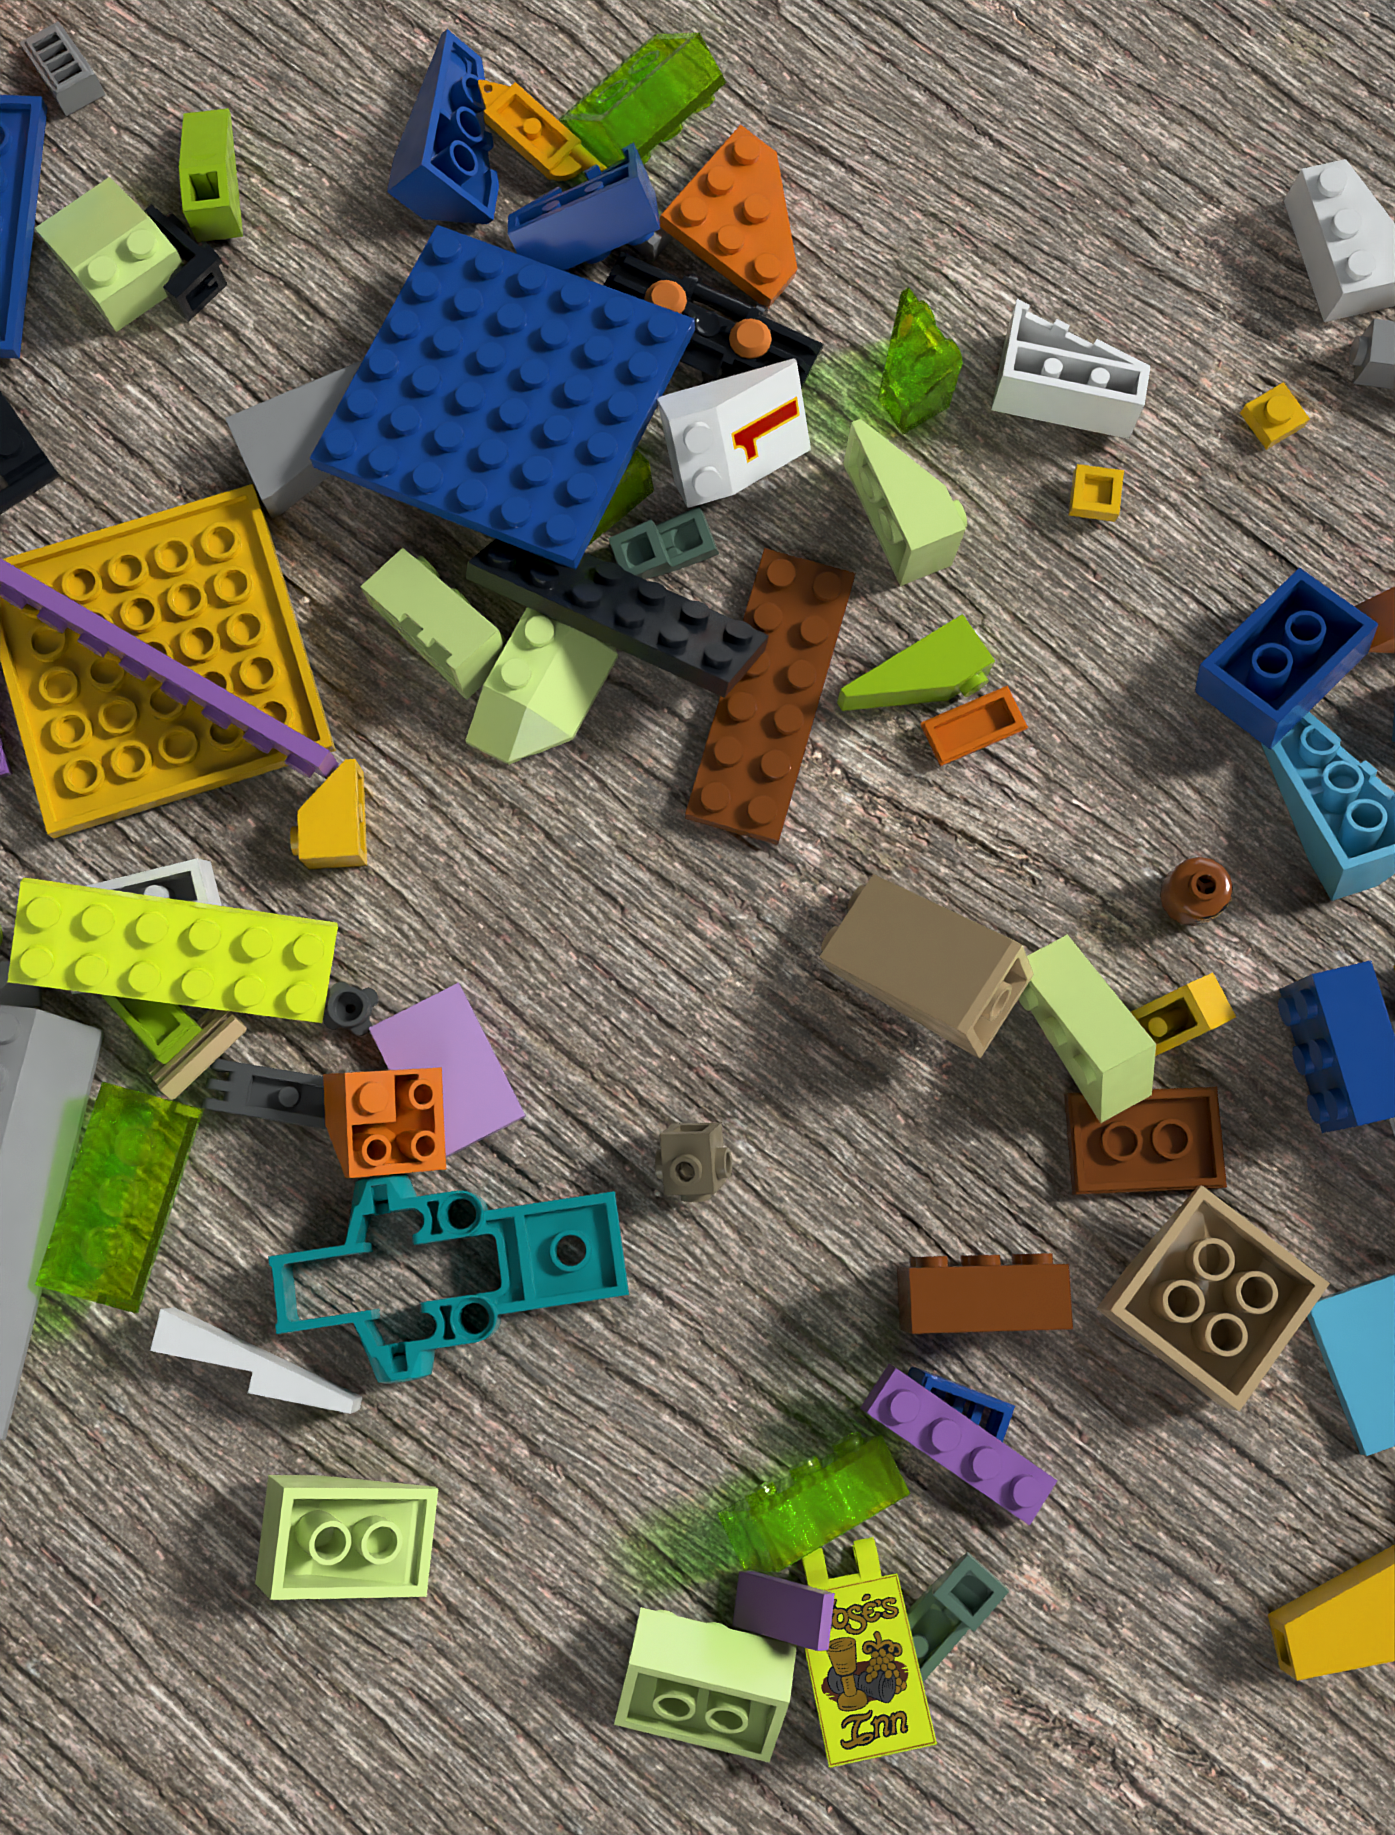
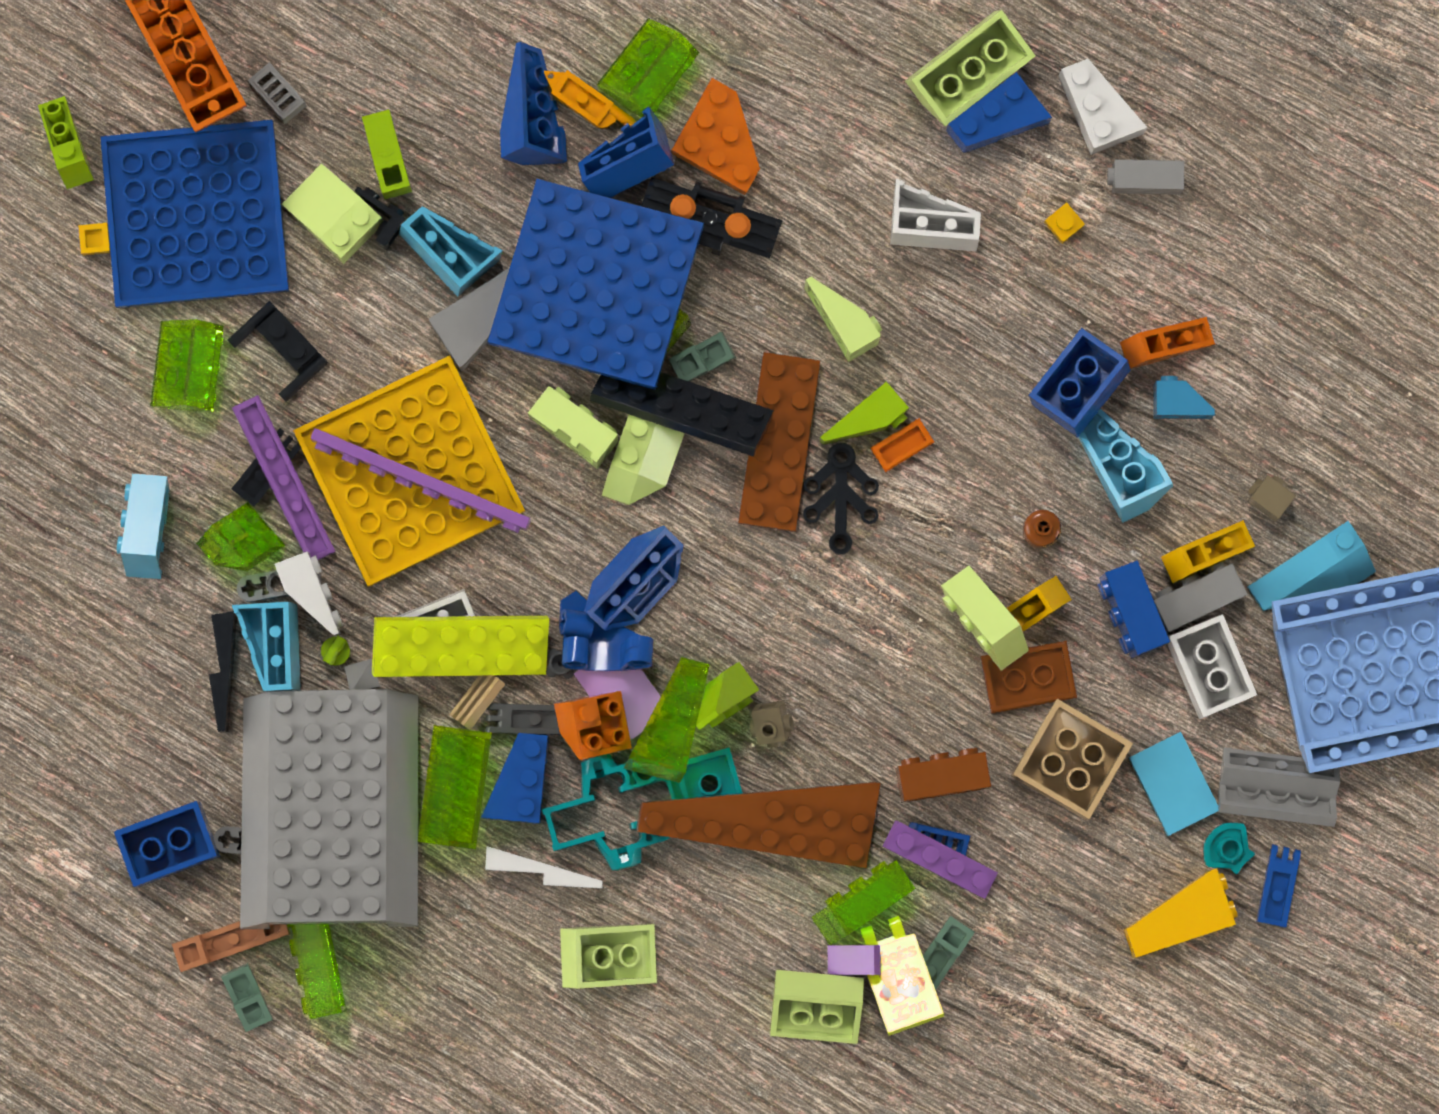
camera: 10 degrees left, 5 degrees up
(158, 1025) = (455, 689): lime tile -> none
(243, 1203) = (521, 782): none -> blue wedge
(278, 320) = (448, 250): none -> medium azure wedge
(333, 822) = (533, 556): yellow slope -> none
(416, 979) = (592, 648): none -> blue panel
(497, 884) = (635, 579): none -> blue wedge
(508, 1151) = (669, 733): none -> clear neon green wedge
(619, 1102) = (726, 696): none -> lime slope
(720, 1343) = (804, 823): none -> dark orange wing
(734, 431) = (735, 286): white slope -> none
(862, 790) = (841, 493): none -> black plant
(918, 366) = (839, 229): clear neon green slope -> none
(928, 963) = (889, 594): tan slope -> none
(1096, 492) = (959, 289): yellow plate -> none
(1152, 152) = (970, 67): none -> yellowish green slope
(1188, 235) = (998, 115): none -> blue wedge

